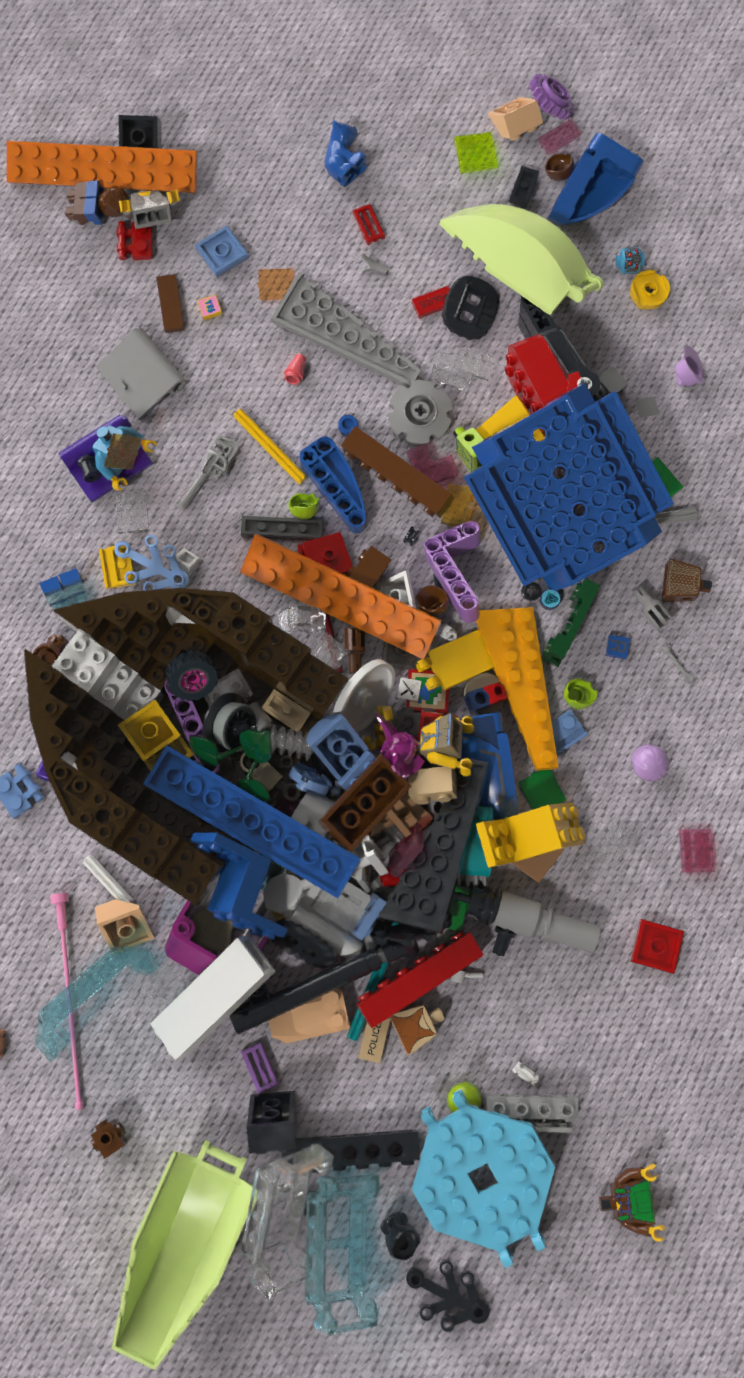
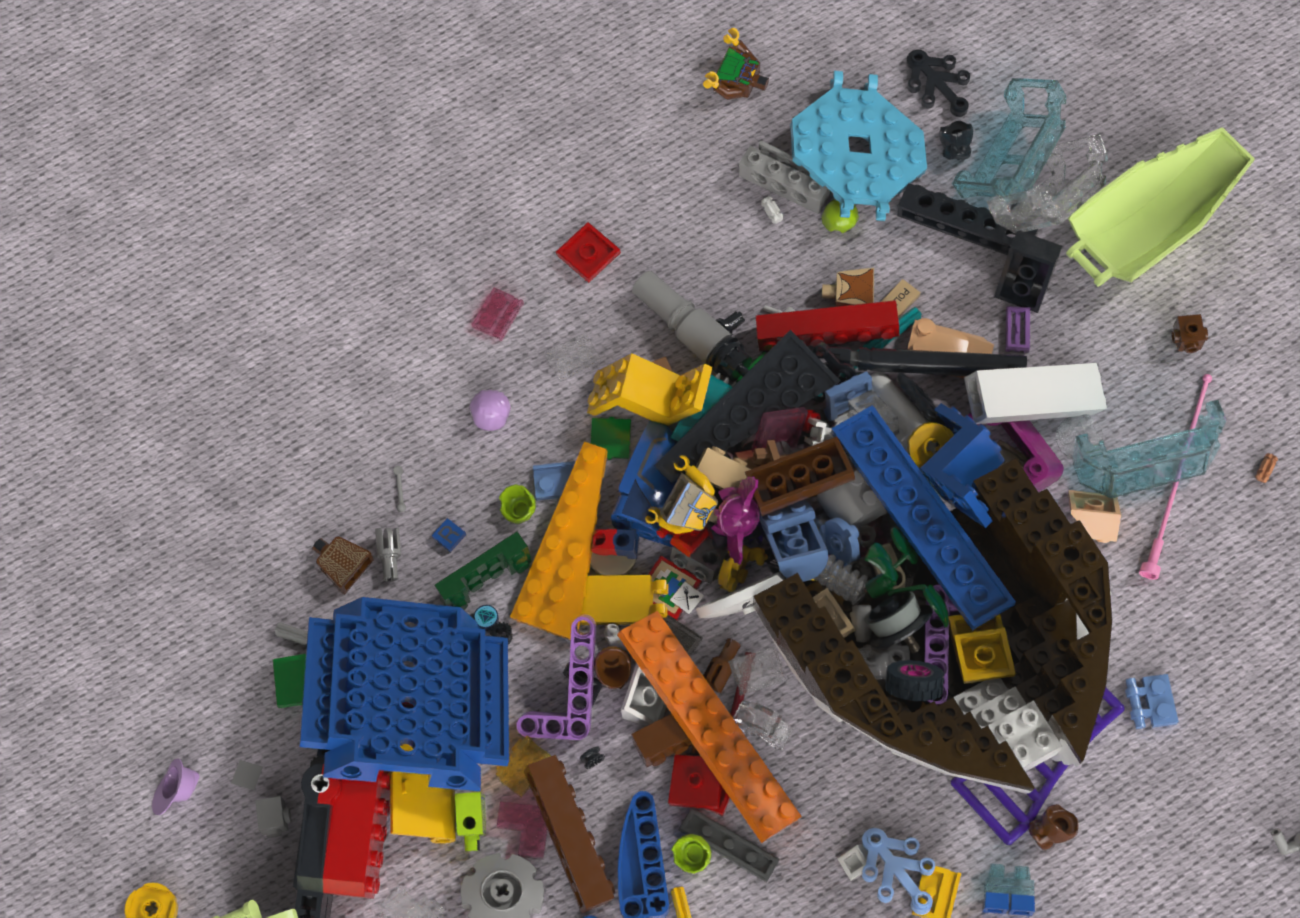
camera: 145 degrees left, 10 degrees down
(283, 904) = (921, 436): none -> yellow plate

